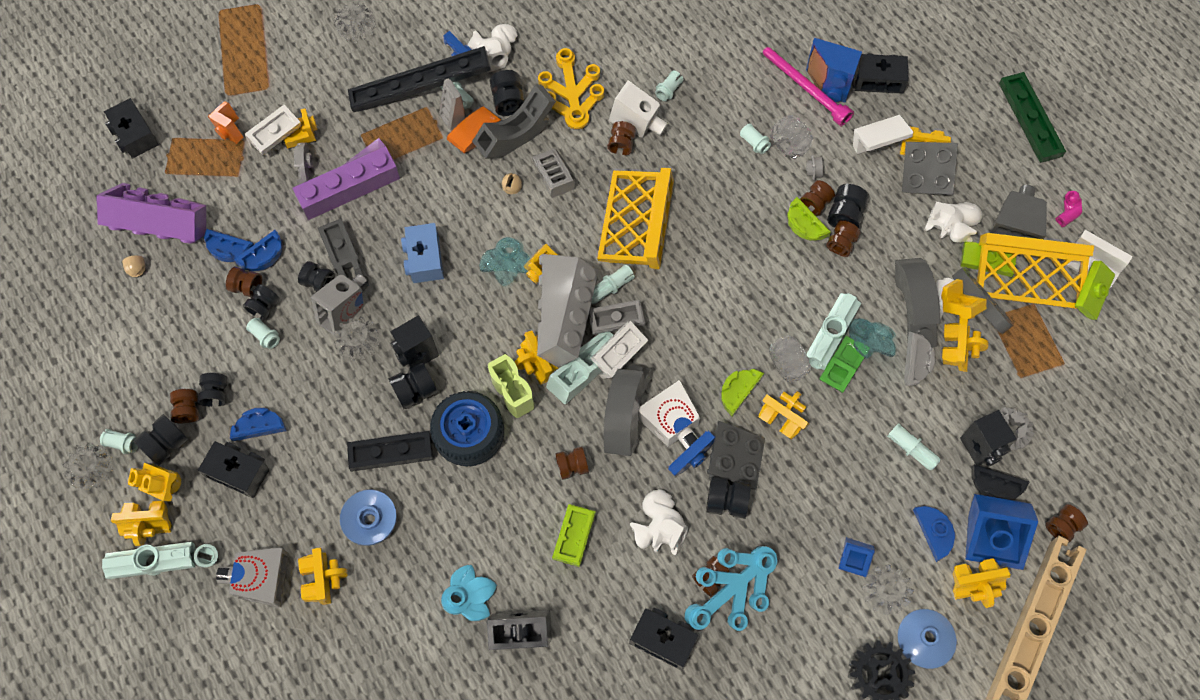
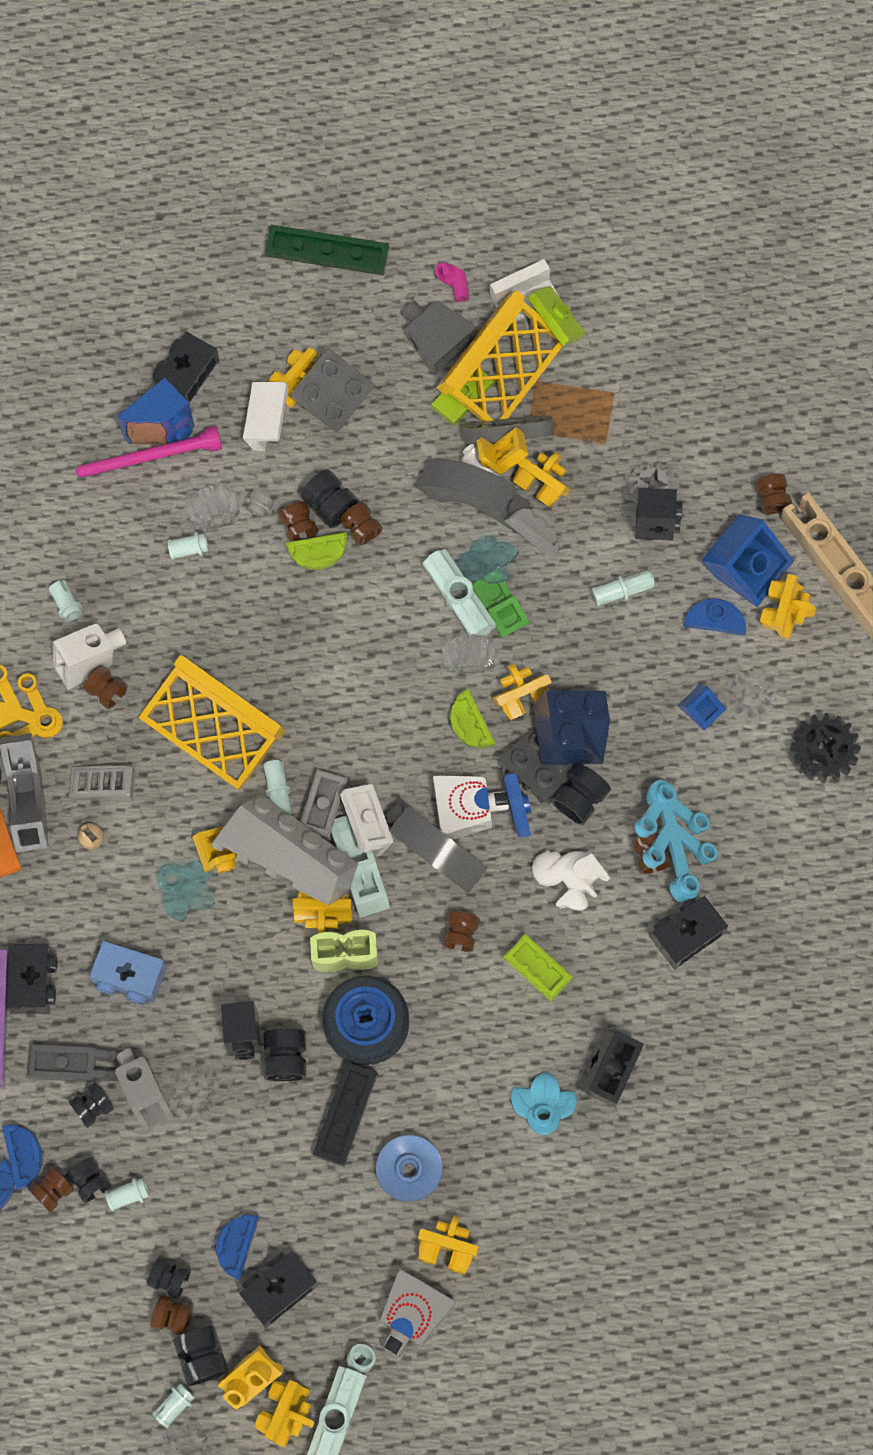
camera: 60 degrees left, 5 degrees up
(376, 193) = (22, 962): none -> black brick
(777, 462) = (572, 726): none -> dark blue slope
(915, 646) = (808, 700): medium blue dish -> none
(955, 220) = (398, 403): white animal -> none
(997, 484) = (701, 533): black plate -> none

